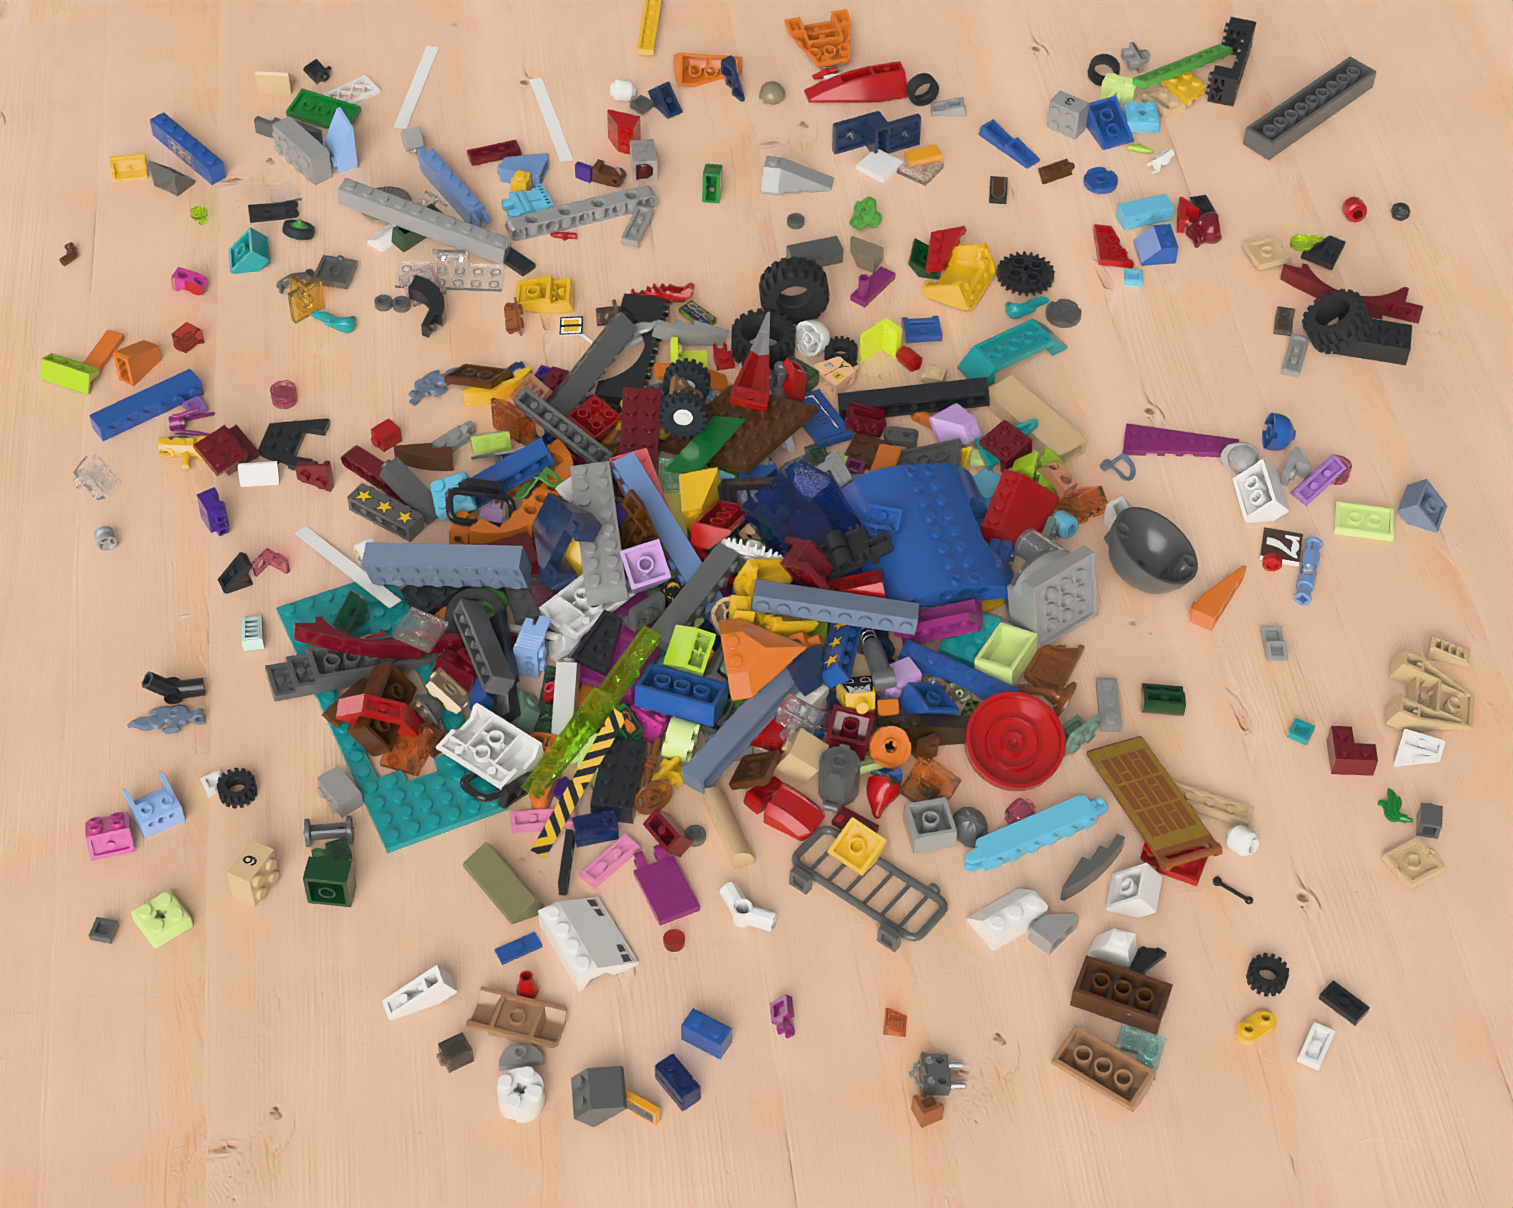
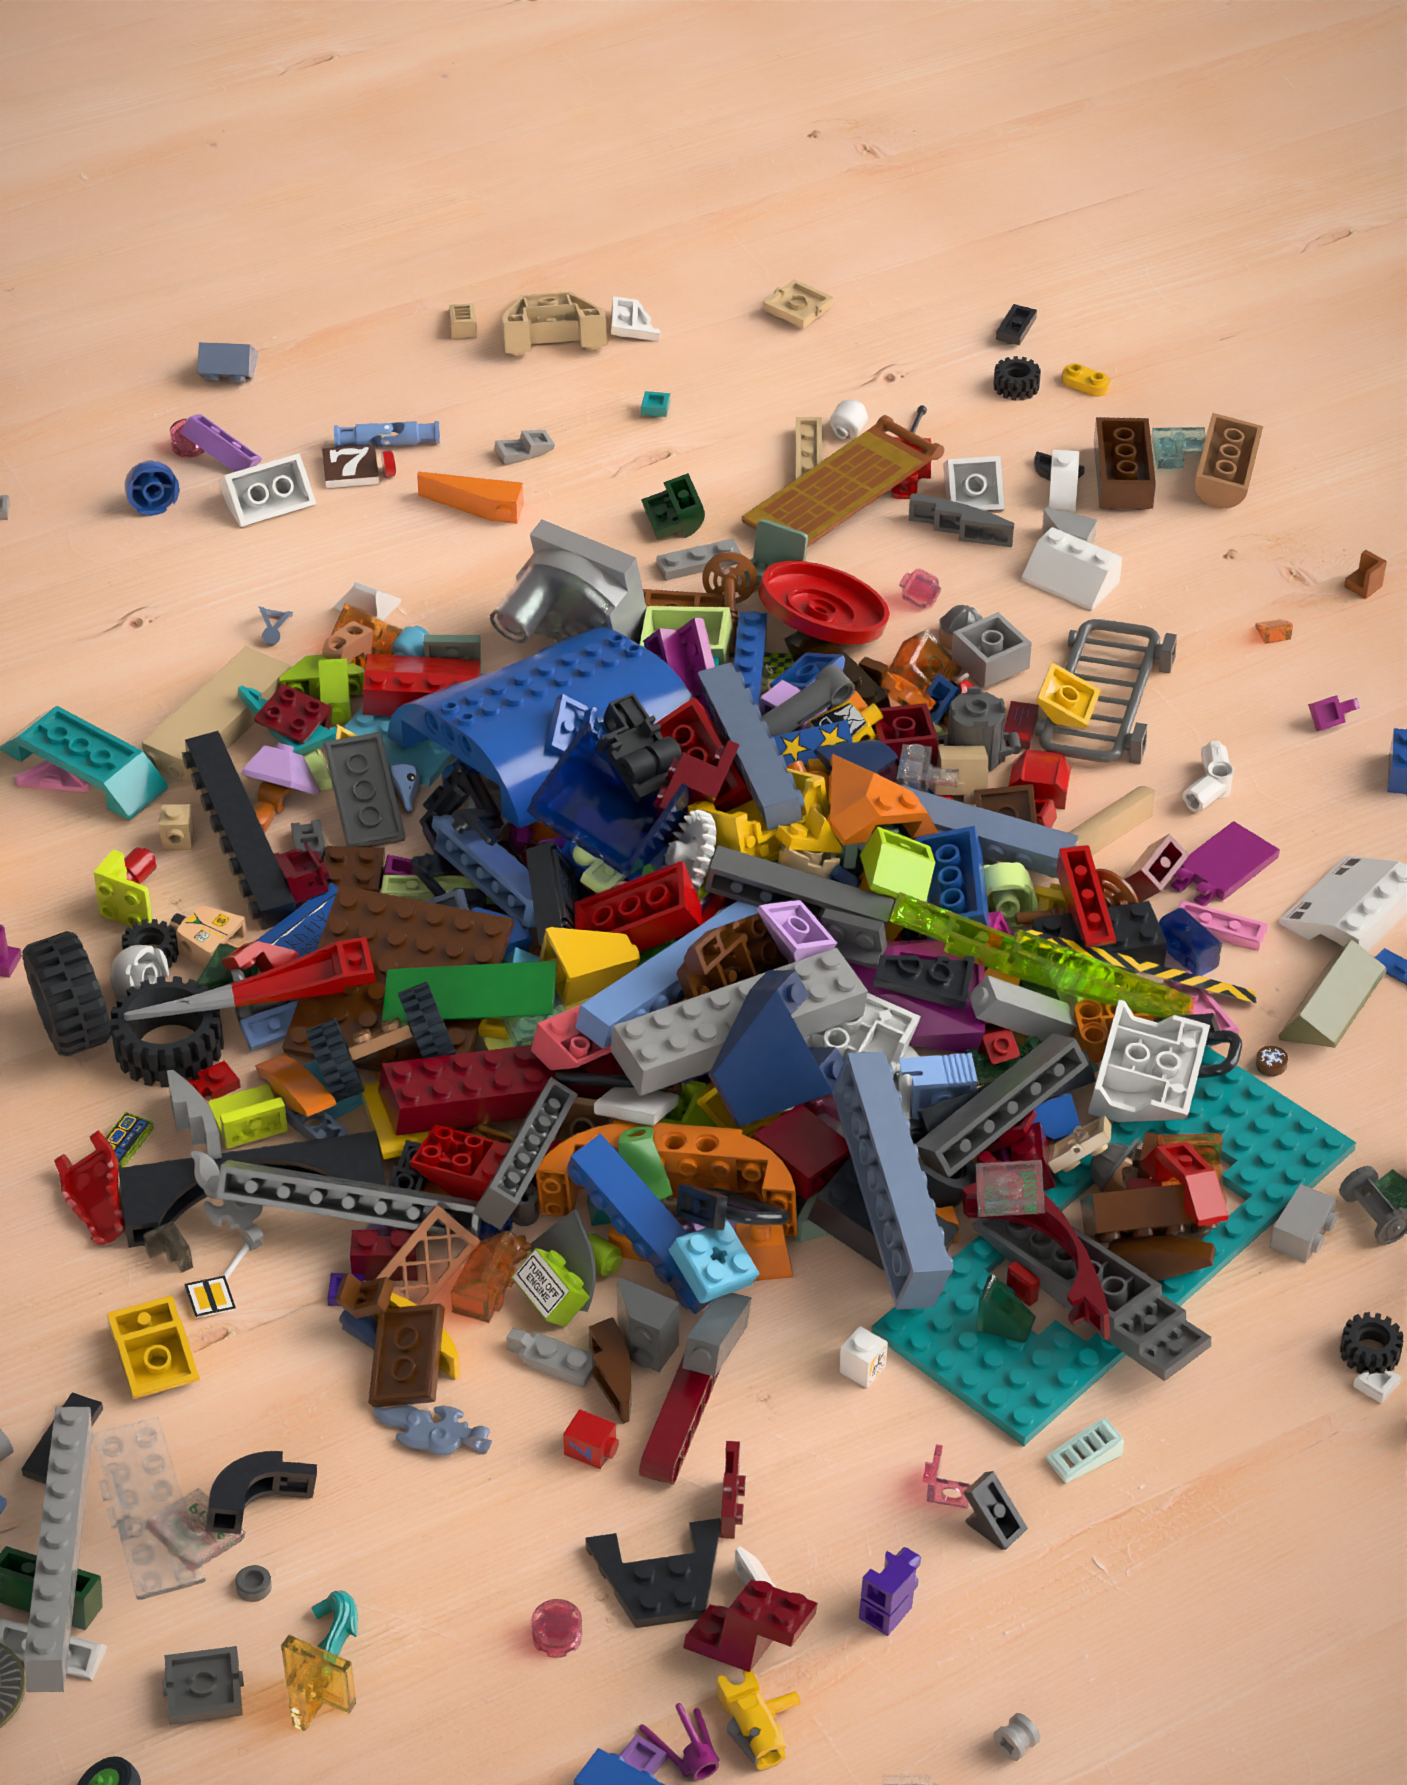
camera: 110 degrees left, 5 degrees down
(173, 688) = (1254, 1493): black piece -> none
(174, 715) = (1296, 1480): sand blue piece -> none
(283, 283) = (256, 1749): dark grey piece -> none
(347, 566) = (891, 1390): white sticker -> none
(386, 512) = (758, 1373): dark grey brick -> none
(401, 304) = (246, 1552): dark grey tile -> none
(438, 463) = (647, 1324): none -> dark grey slope
(478, 836) = (1271, 1060): none -> reddish brown tile
(514, 312) = (241, 1352): dark orange hinge -> none
(518, 360) = (366, 1297): none -> reddish brown bracket
(566, 862) = (1256, 956): black tile -> none
(641, 762) = (1084, 895): none -> red slope
(674, 940) = (1293, 834): clear red tile -> none
(697, 834) = (1126, 857): dark grey tile -> none
(886, 457) = (378, 833): orange slope -> none
(922, 329) = (65, 866): blue plate -> none
(935, 1074) = (1317, 580): dark grey piece -> none
(1034, 832) = (960, 582): medium azure hinge -> none
(1146, 439) = (198, 592): magenta wing -> none
(1150, 551) = (458, 538): dark grey piece -> none
(1239, 456) = (214, 507): light grey piece -> none
(1296, 465) = (198, 471): light grey slope -> none
(1316, 1046) = (1083, 334): white plate -> none
(1350, 757) = (672, 363): dark red brick -> none
(1364, 521) = (268, 409): yellowish green tile -> none
(1391, 808) = (723, 332): green piece -> none
(1429, 820) = (732, 298): dark grey brick -> none

